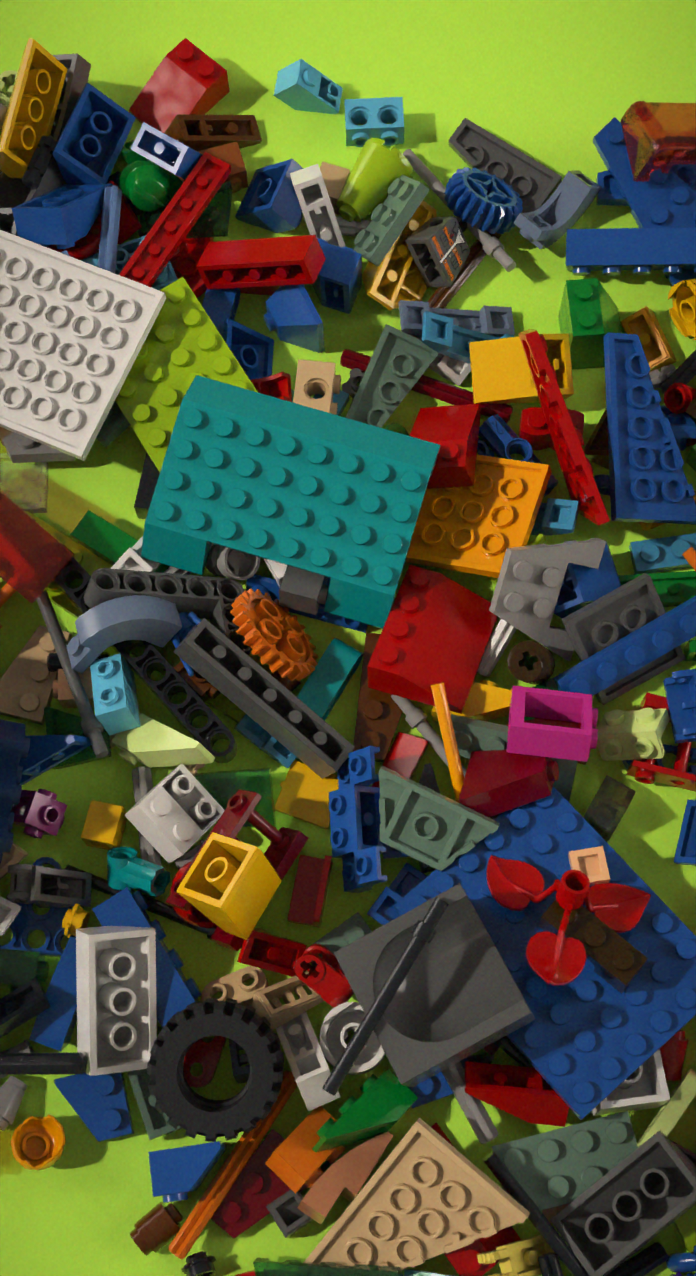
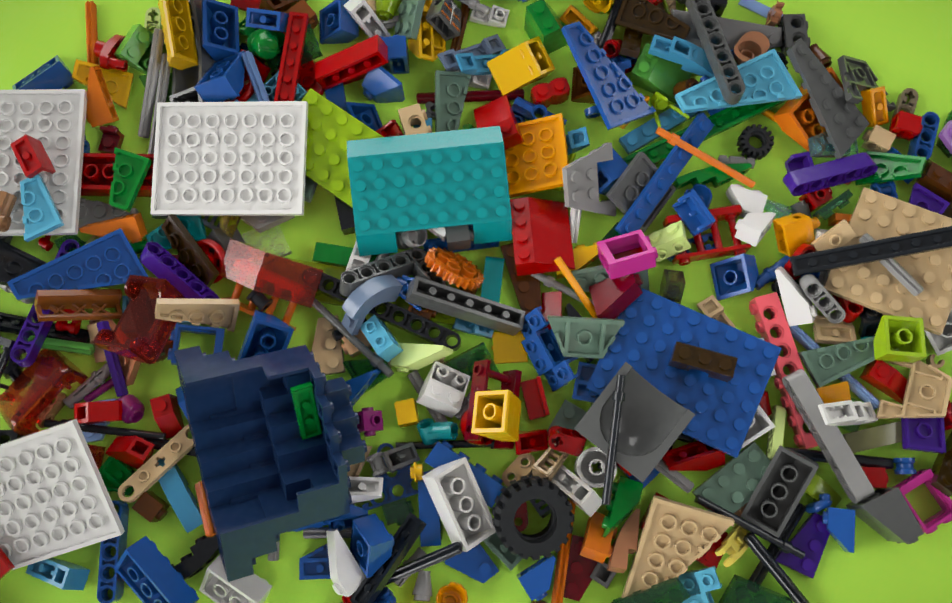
camera: 25 degrees left, 5 degrees up
(39, 162) = (196, 54): black axle -> none
(520, 282) = (496, 18): none -> white slope
(520, 656) = (607, 225): dark brown piece -> none
(553, 956) = (689, 378): red plant -> none
(565, 438) = (564, 94): red wing -> none
(592, 863) = (681, 322): light nougat plate -> none
(659, 874) = (713, 309): none -> tan slope

